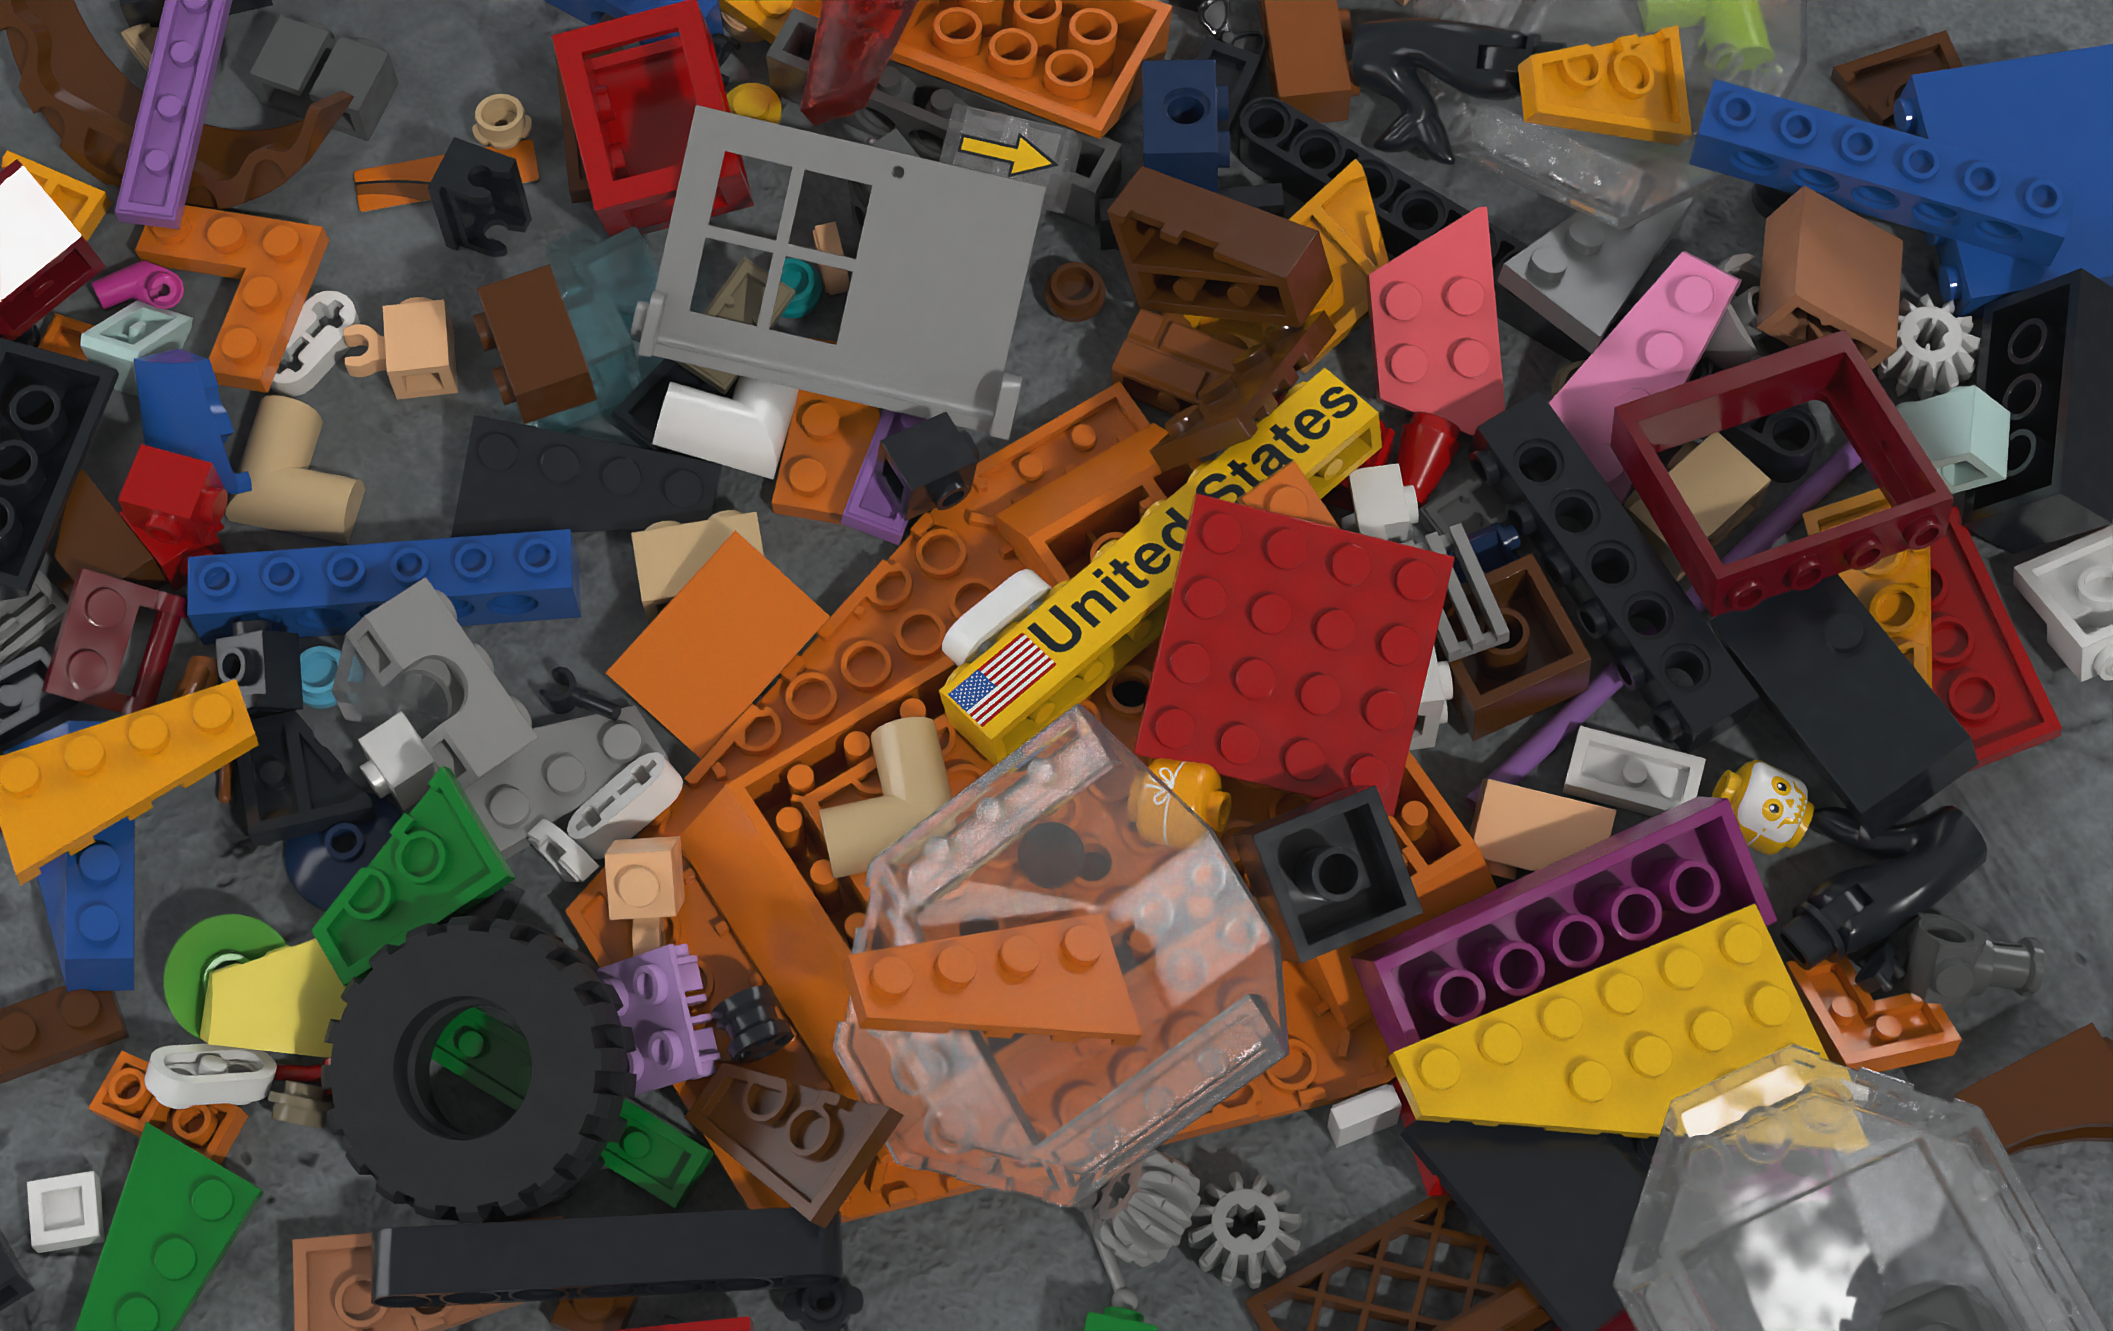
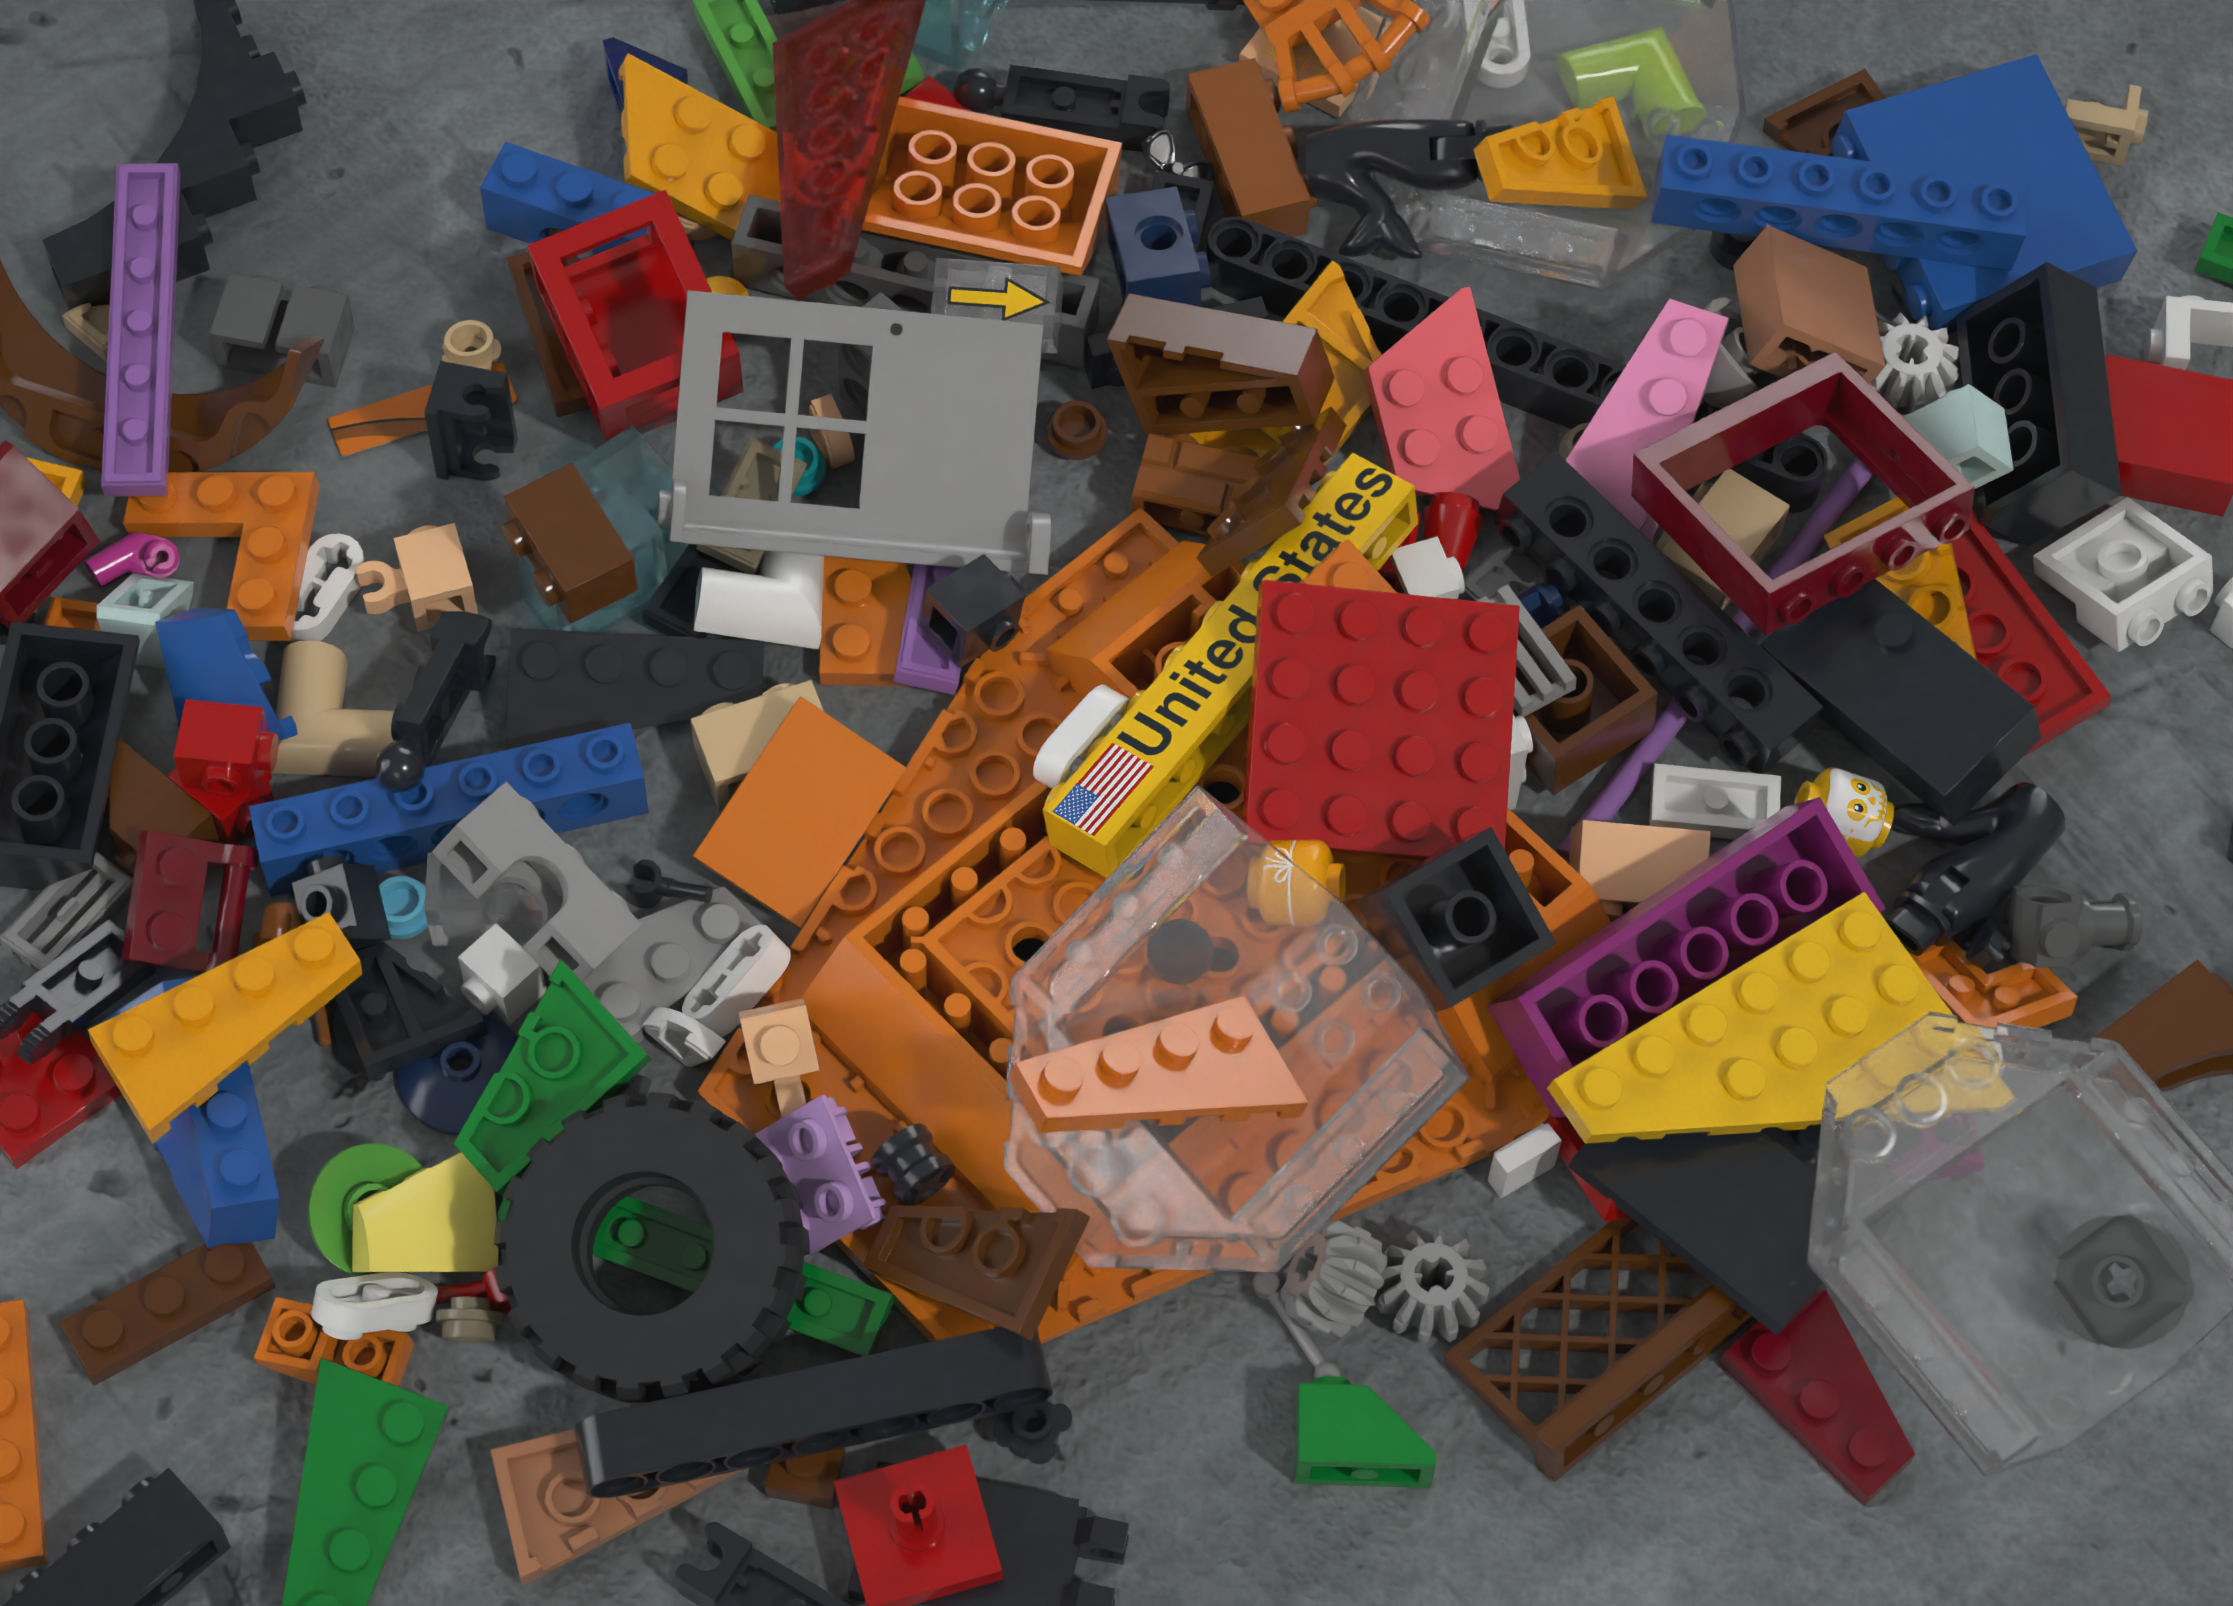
camera: 15 degrees left, 5 degrees down
(65, 1212) = (250, 1463): white plate -> none
(389, 475) = (436, 698): none -> black plate
(912, 789) = (1029, 913): tan brick -> none
(1588, 270) = (1576, 334): dark grey wing -> none

